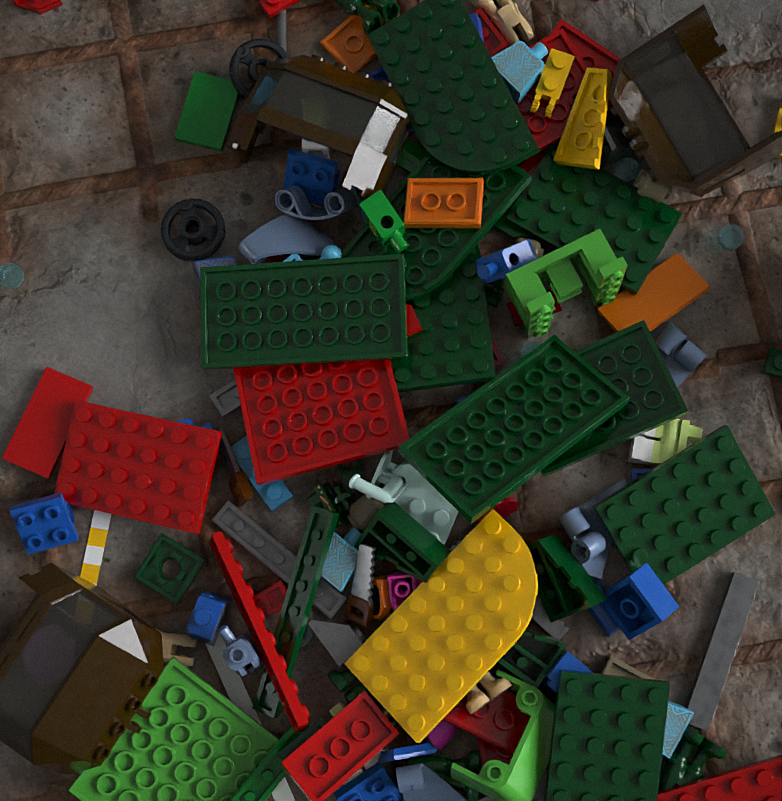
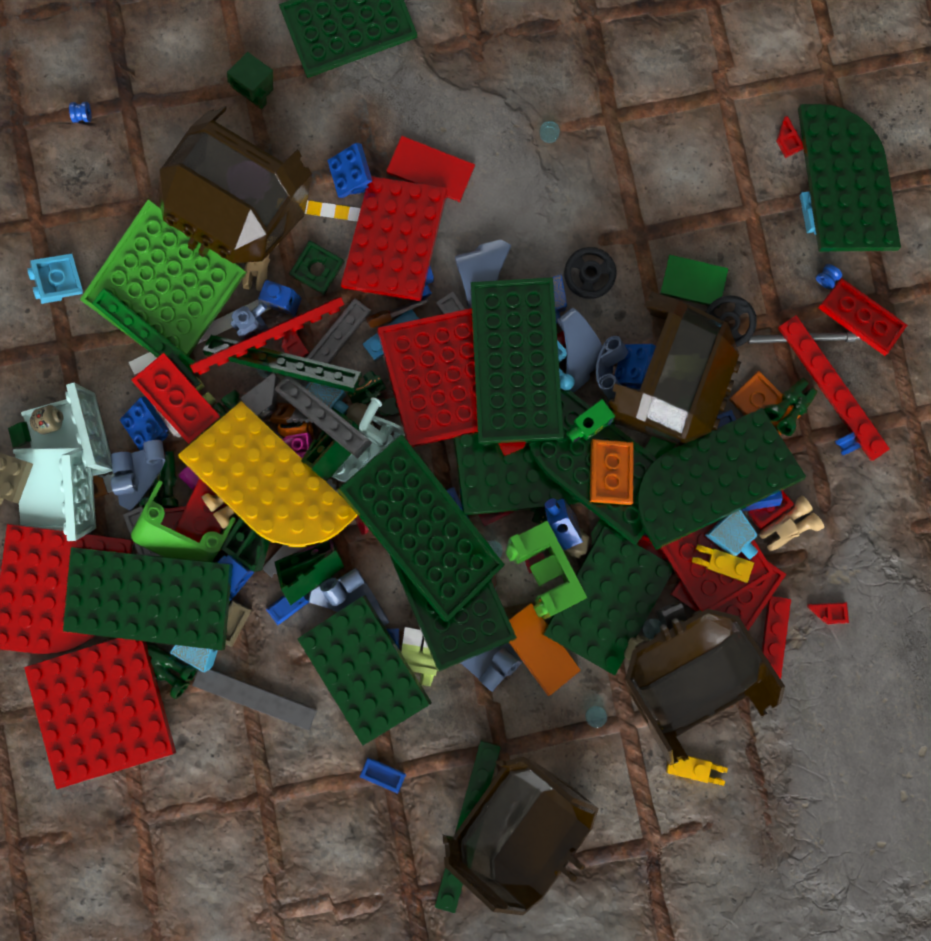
camera: 85 degrees right, 5 degrees up
(179, 358) = (482, 264): none -> sand blue panel
(368, 553) = (323, 416): none -> flat silver tile
(407, 752) = (175, 449): blue tile -> none
(585, 127) = (683, 590): yellow wing -> none
(620, 33) = (776, 632): none -> red plate
(639, 601) = (289, 630): blue brick -> none

